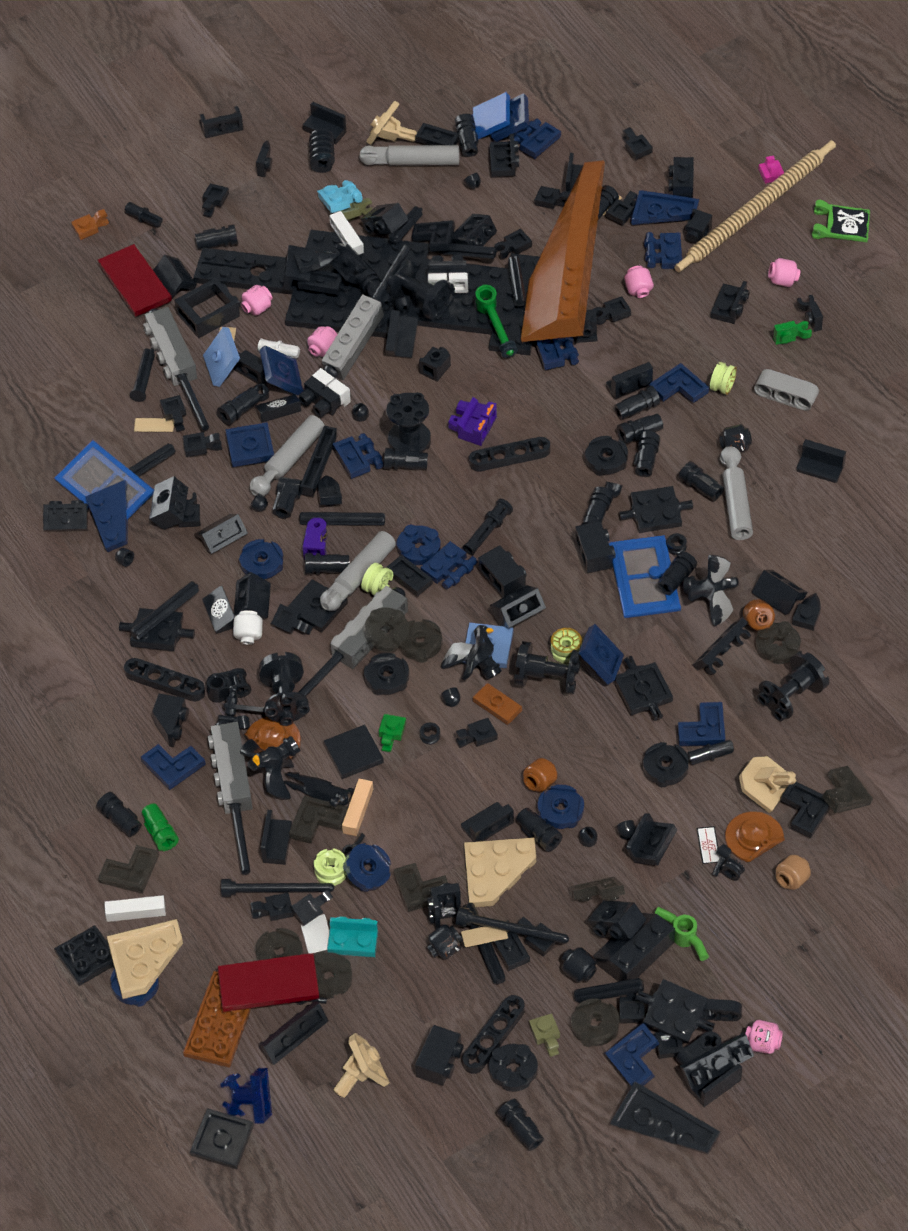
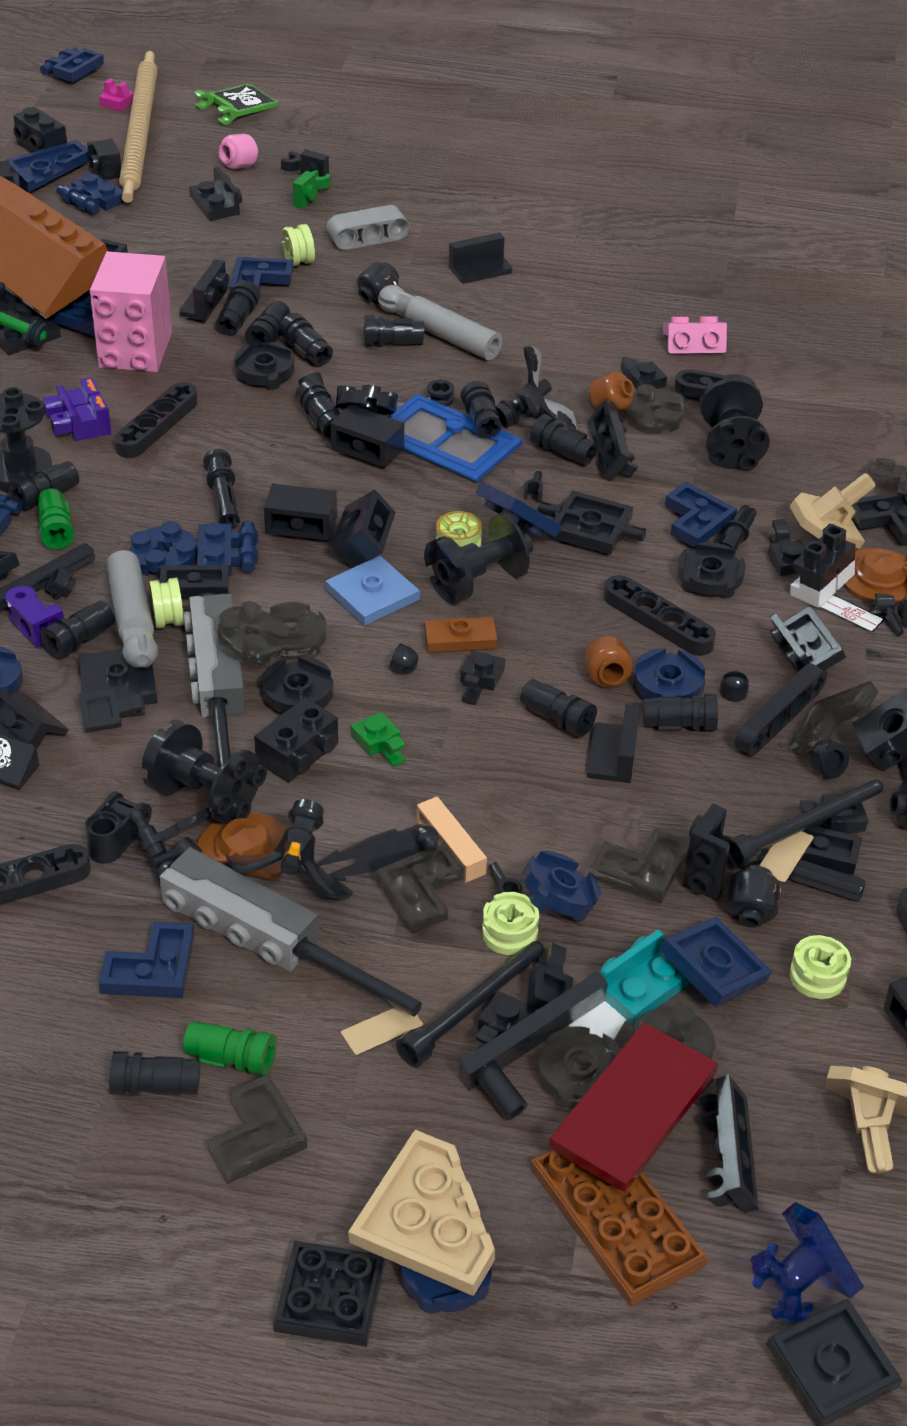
camera: 50 degrees left, 10 degrees down
(135, 908) = (323, 1174): white piece -> none
(169, 715) = (80, 913): black slope -> none
(227, 869) = (379, 1029): none -> tan sticker
(247, 627) = (62, 748): white head -> none
(269, 919) = (487, 1062): none -> black piece
(275, 840) = (400, 947): black panel -> none
(348, 529) = (61, 582): none -> black plate
(350, 702) = (297, 739): none -> black brick
(353, 751) = (364, 789): black tile -> none
(383, 489) = (55, 520): none -> green axle
(386, 955) = (715, 961): none -> dark blue plate
(427, 727) = (423, 718): black bush -> none
(437, 1002) = (820, 967): none -> yellowish green wheel
(474, 654) = (382, 594): black animal -> none
(487, 780) = (568, 711): none -> black axle
(496, 867) = (684, 781): tan plate -> none
(558, 372) = (131, 311): none -> bright pink container
(572, 909) = (829, 759): none -> black tile
(588, 866) = (780, 709): none -> black beam
(605, 769) = (690, 635): none -> black beam
(620, 524) = (368, 398): none -> black plate
(626, 829) = (765, 651): black hinge -> none
(638, 281) = (102, 221): bright pink head -> none
(642, 642) = (534, 486): none -> black hand
(656, 509) = (382, 371): black plate -> none
(695, 619) = (566, 442): none -> black axle
(708, 804) = (824, 566): none -> black hips
(721, 787) = (783, 550): none -> black plate
(776, 121) = (72, 64): none -> dark blue plate
(778, 591) = (585, 367): black panel -> none
(828, 649) = (692, 382): none -> black plate
(871, 608) = (696, 337): none -> bright pink bracket

